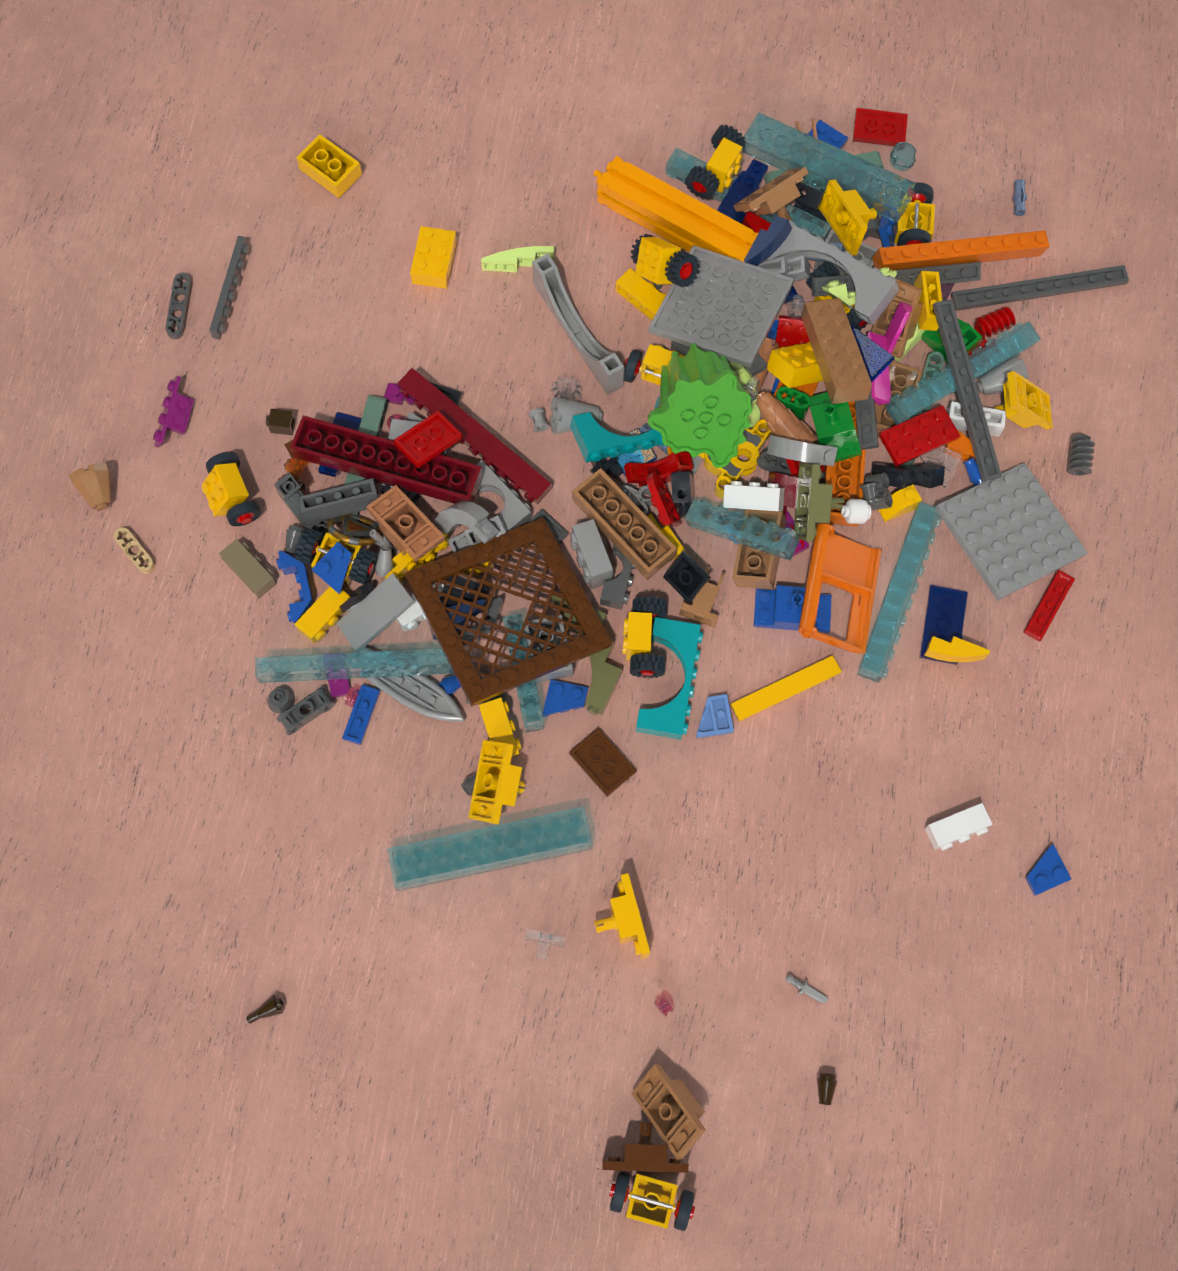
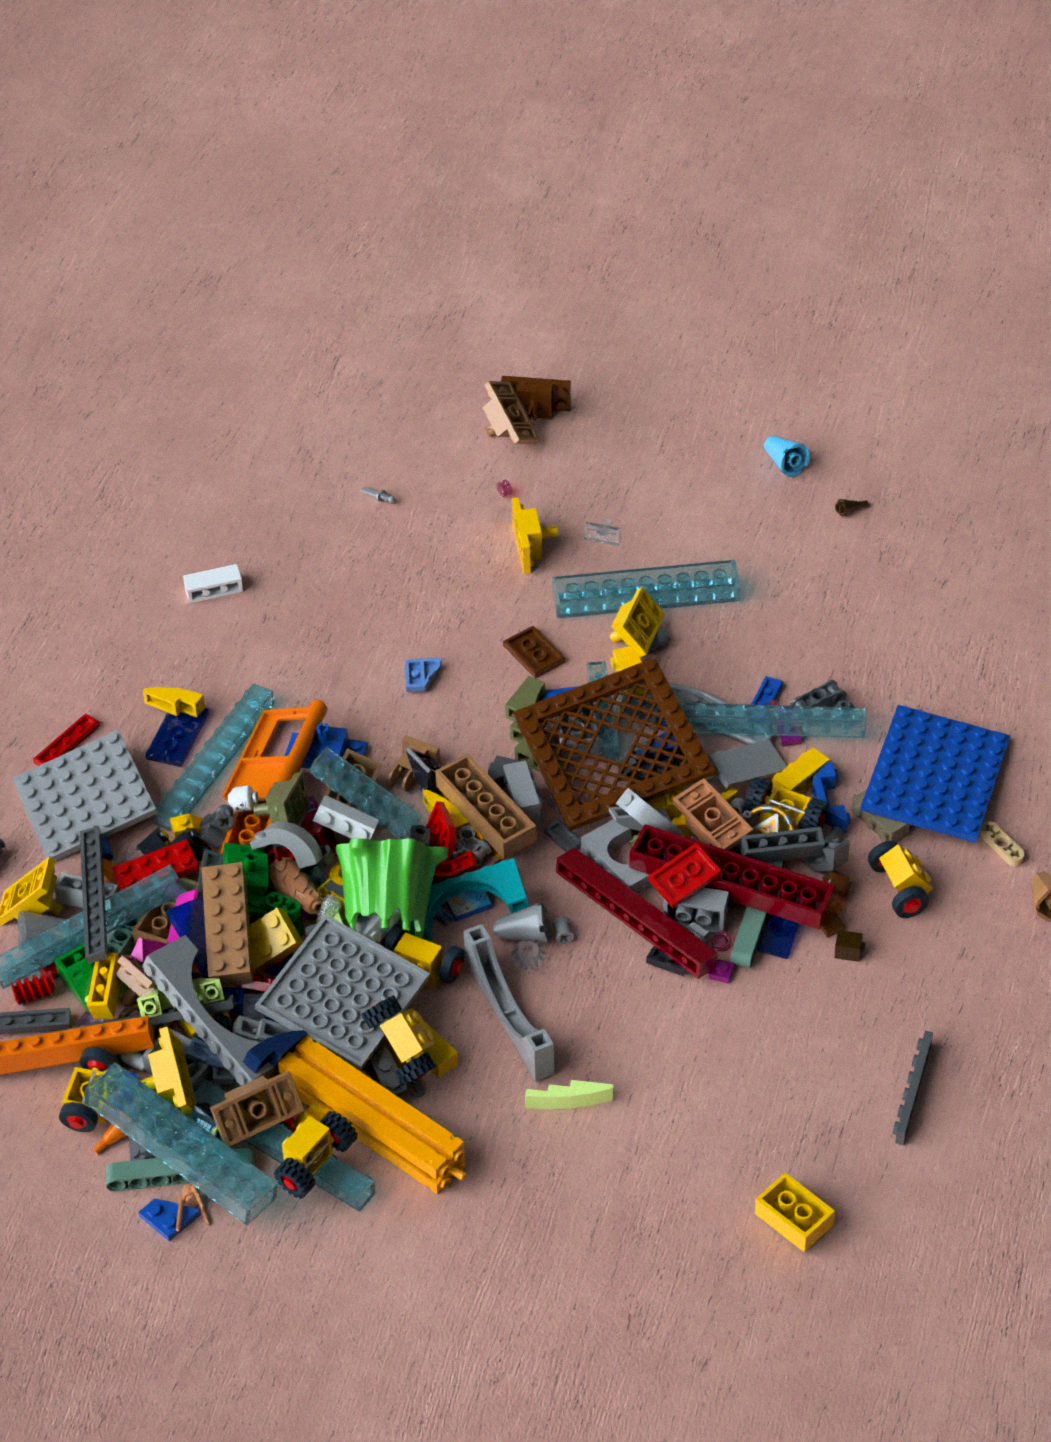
camera: 170 degrees left, 25 degrees down
(175, 413) = (969, 964): magenta bracket -> none
(178, 305) = (971, 1076): dark grey beam -> none
(190, 620) = (935, 773): none -> blue plate
(334, 567) = (788, 790): blue wing -> none
(341, 1087) = (787, 454): none -> medium azure cone
(356, 597) = (768, 769): black slope -> none
(433, 257) = (669, 1101): yellow brick -> none
(638, 640) = (484, 726): brick -> none
(651, 1201) = (531, 367): brick -> none
(683, 641) = (462, 674): teal arch -> none
(744, 185) = (271, 1148): clear blue piece -> none
(785, 688) = (353, 691): yellow tile -> none
(826, 1088) = (376, 435): dark brown cone -> none
(879, 127) = (95, 1221): red plate -> none
(902, 156) = (79, 1178): clear light blue hair -> none
(1047, 872) = (142, 553): blue wing -> none

